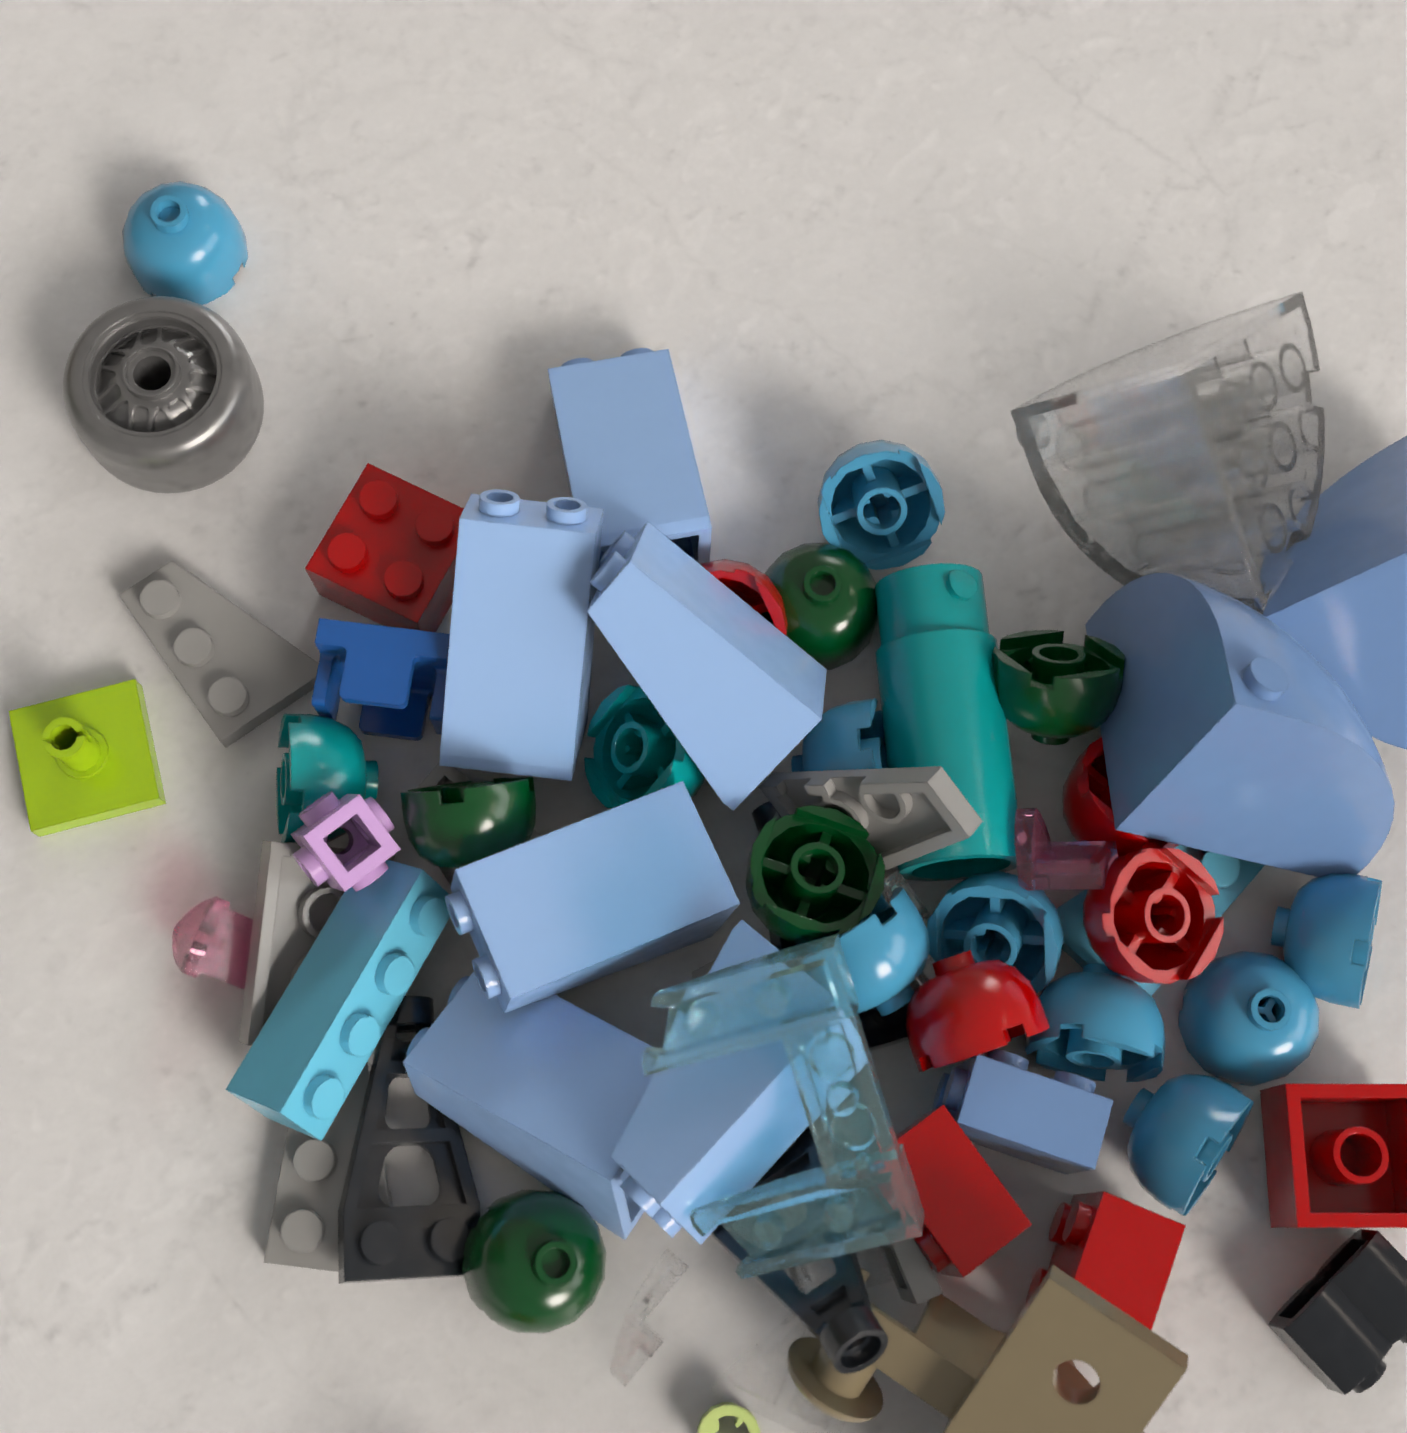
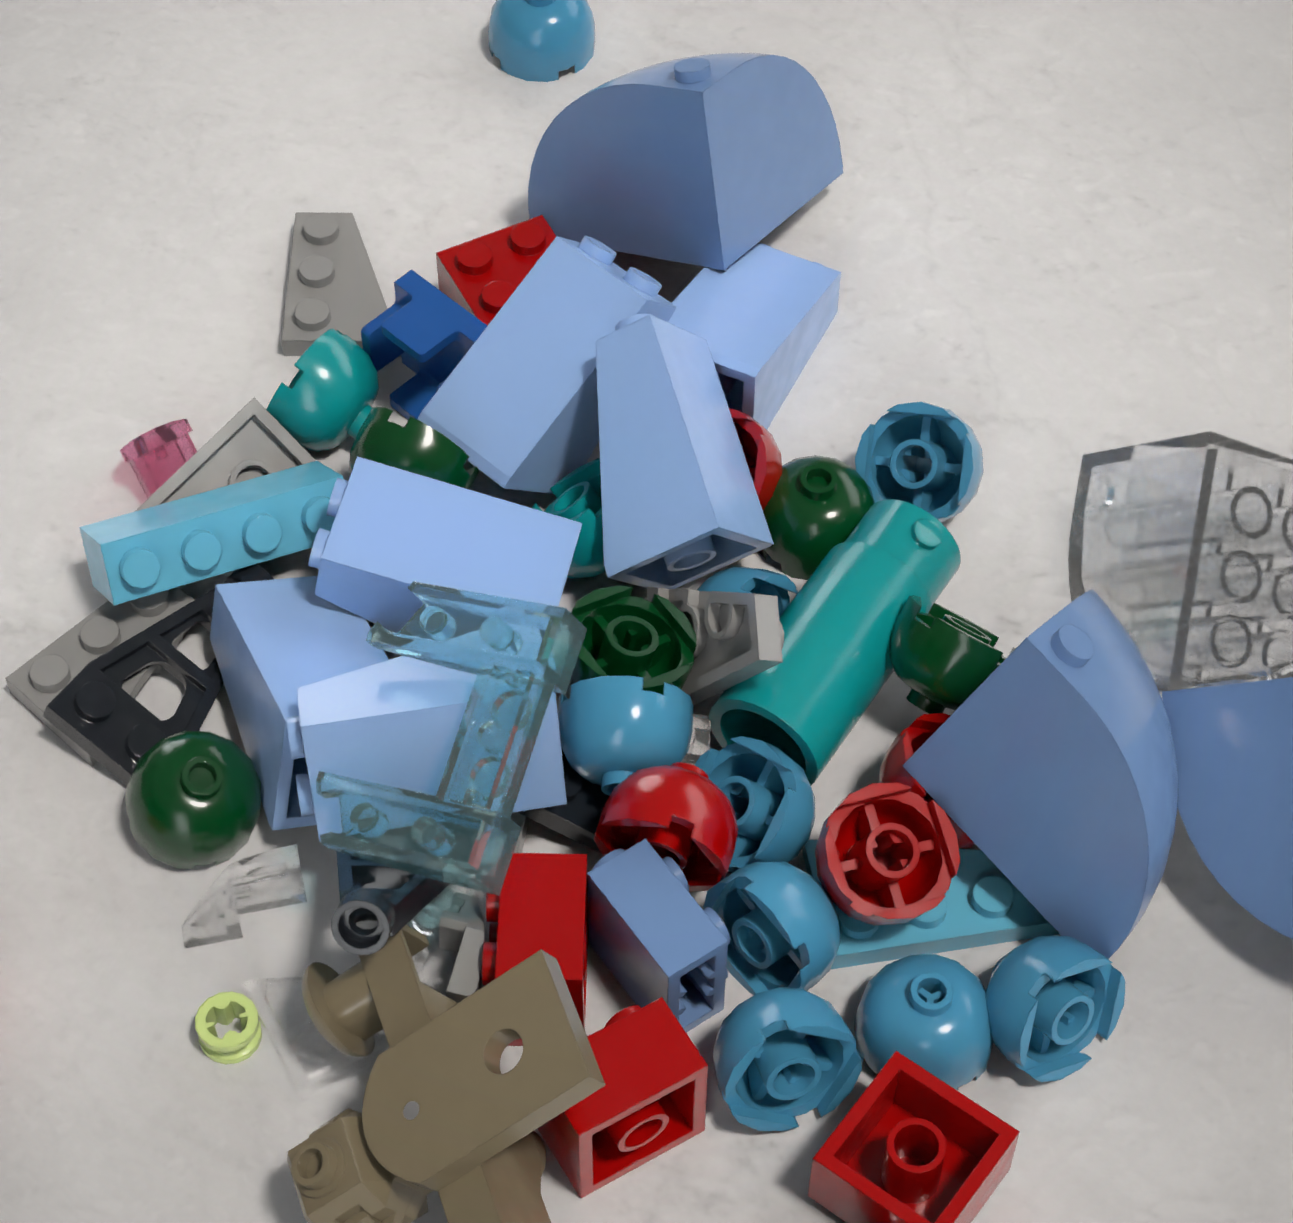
camera: 40 degrees right, 20 degrees down
(86, 758) = (182, 300): lime tile -> none
(163, 394) = (438, 104): flat silver wheel -> none
(367, 847) = (303, 400): lavender brick -> none
(464, 334) = (687, 157): none -> medium blue brick
(1058, 864) = (828, 755): clear pink tile -> none

